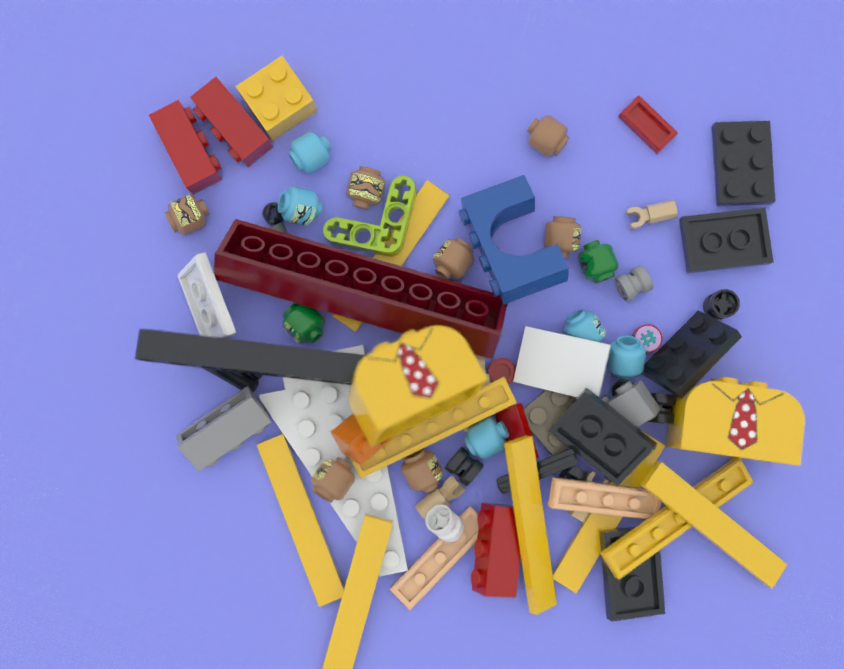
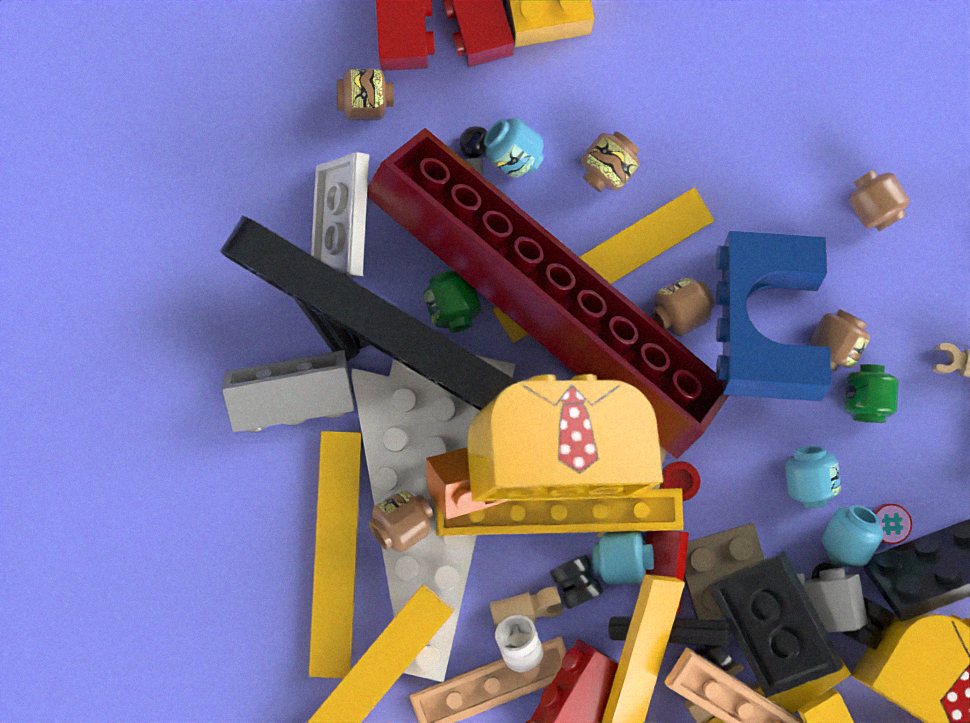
camera: 20 degrees right, 0 degrees up
(309, 152) = (558, 84): medium azure head -> none
(378, 233) = (600, 228): lime beam -> none
(422, 470) = (519, 562): medium nougat head -> none
(561, 362) = (764, 504): white tile -> none
(633, 283) = (903, 444): light grey wheel -> none

